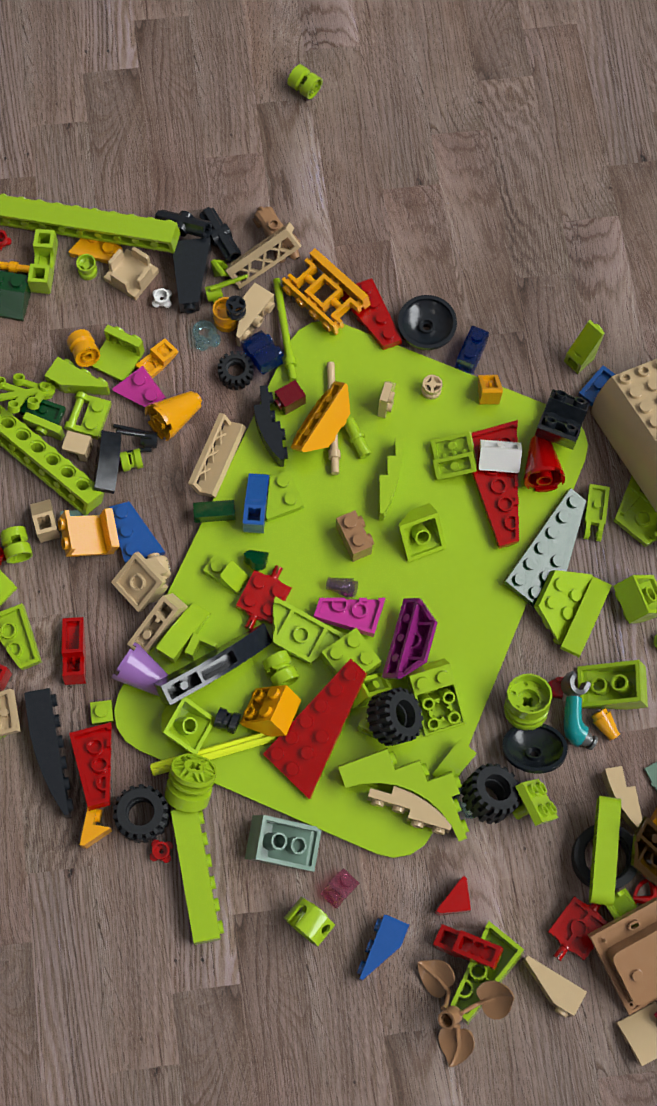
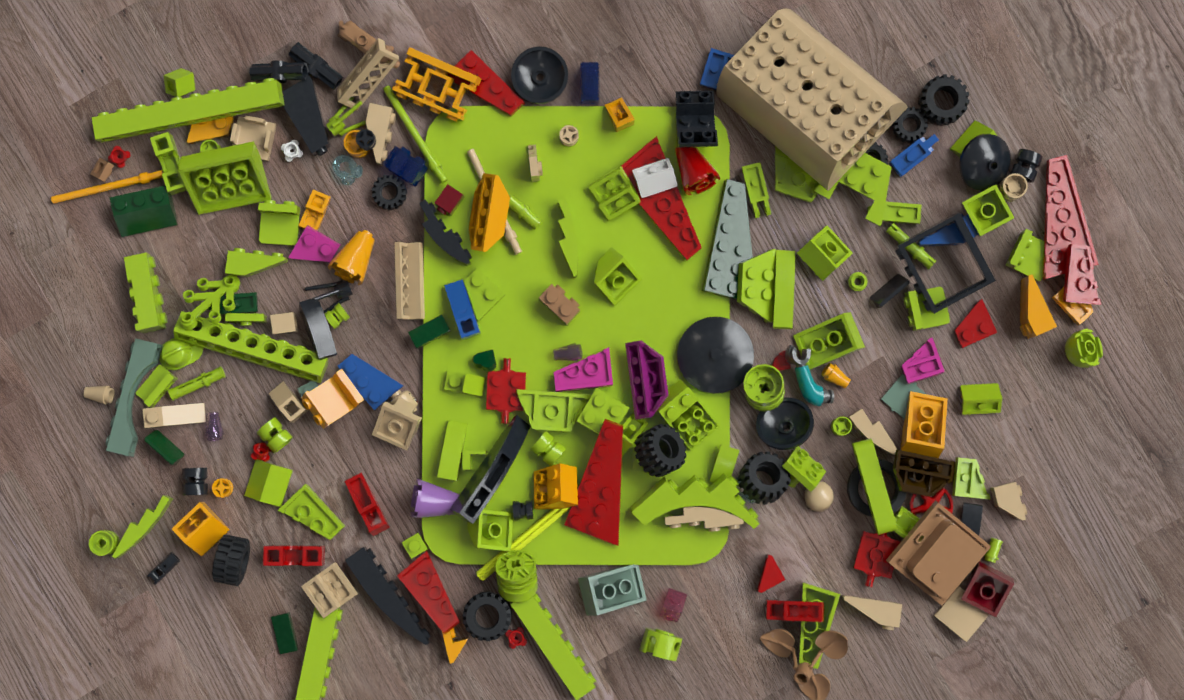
camera: 20 degrees left, 15 degrees up
(83, 348) = (246, 231): light orange wheel -> none
(86, 291) = (224, 178): none -> lime slope
(87, 198) = (179, 82): none -> lime panel
(94, 417) = (285, 290): lime plate -> none
(158, 622) = (427, 452): tan slope -> none
(219, 268) = (330, 99): lime slope -> none
(387, 941) = (728, 631): blue slope -> none
(489, 650) = (715, 355): none -> black dish
(540, 841) = (820, 498): none -> tan hair
(584, 347) = (689, 42): lime slope -> none
(595, 774) = (843, 424): none -> lime wheel

